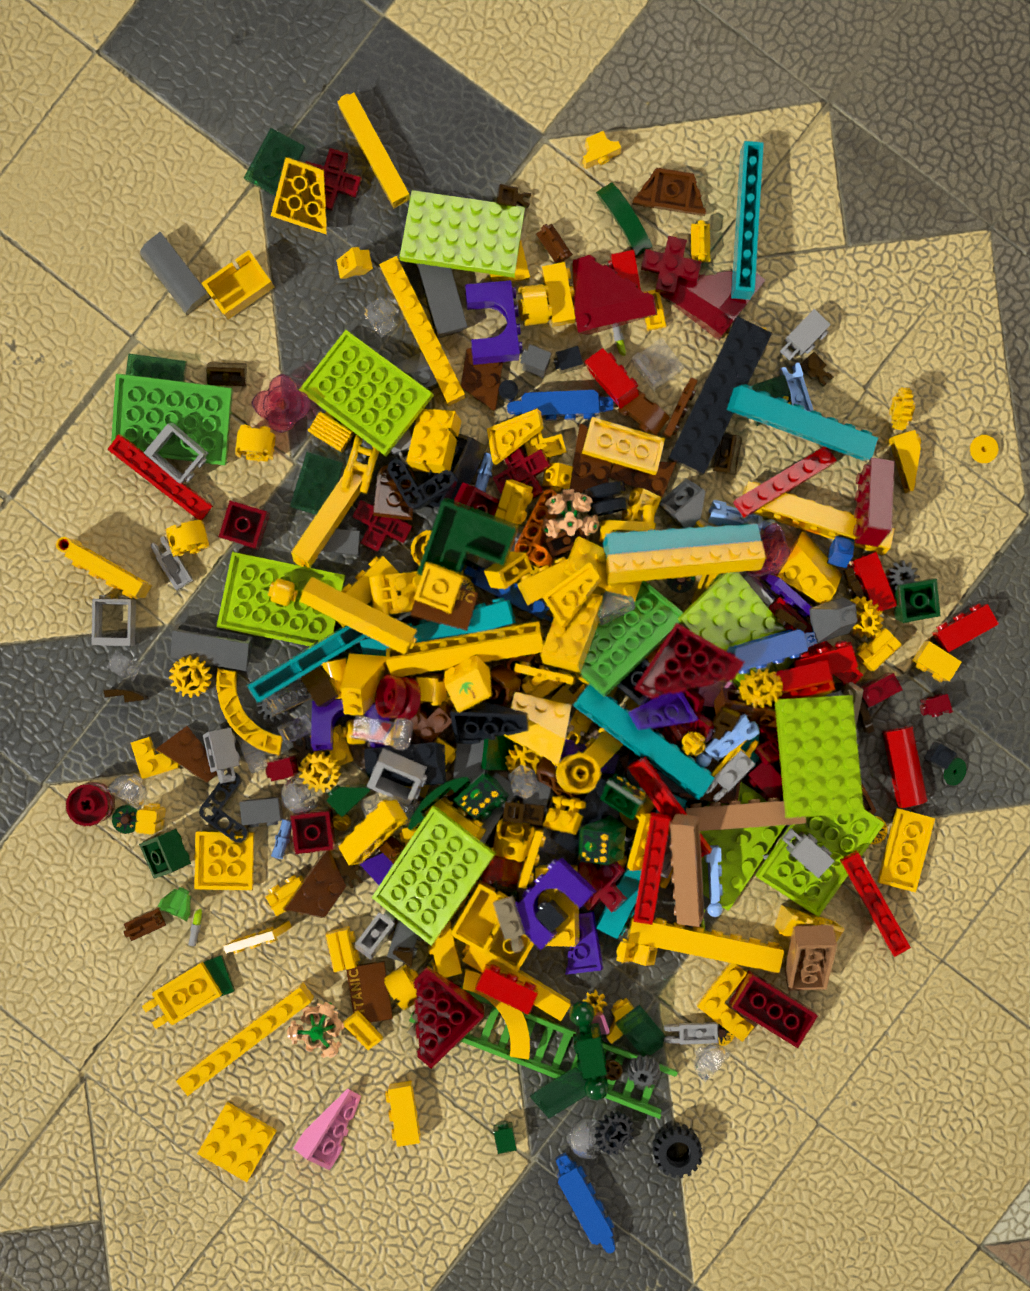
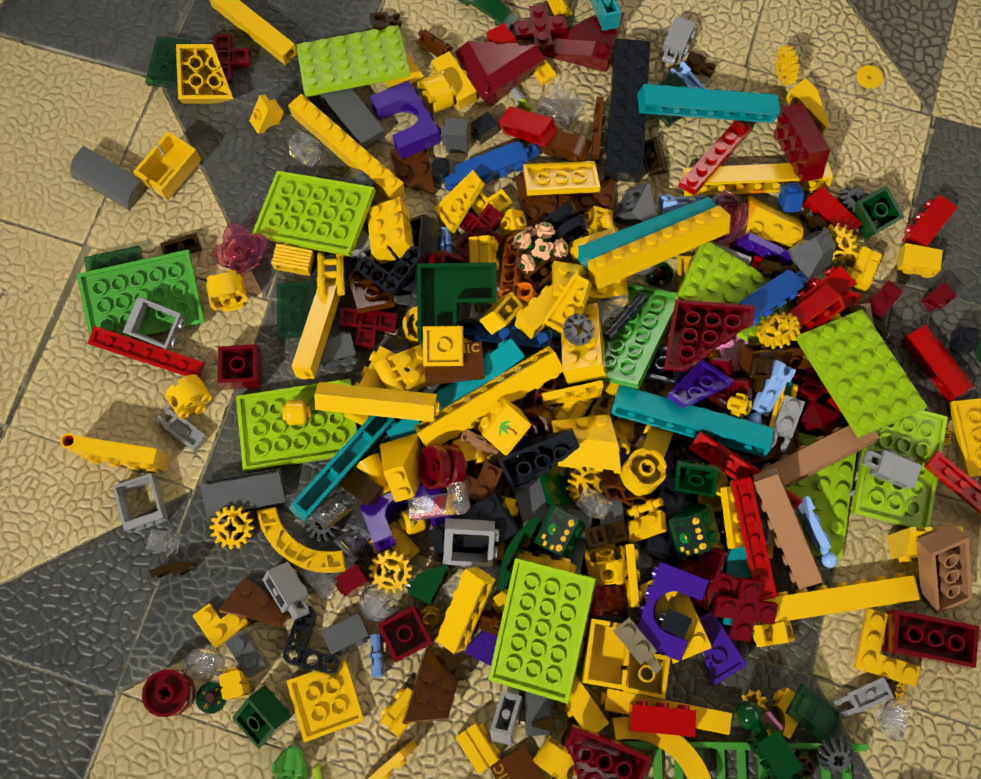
camera: 20 degrees left, 15 degrees down
(169, 795) = (247, 653): none -> dark grey brick
(437, 687) = (479, 442): none -> medium nougat pin
(561, 623) = (570, 331): none -> dark grey gear
(618, 924) = (745, 609): none -> dark red plate
(627, 616) = (630, 310): none -> black pin

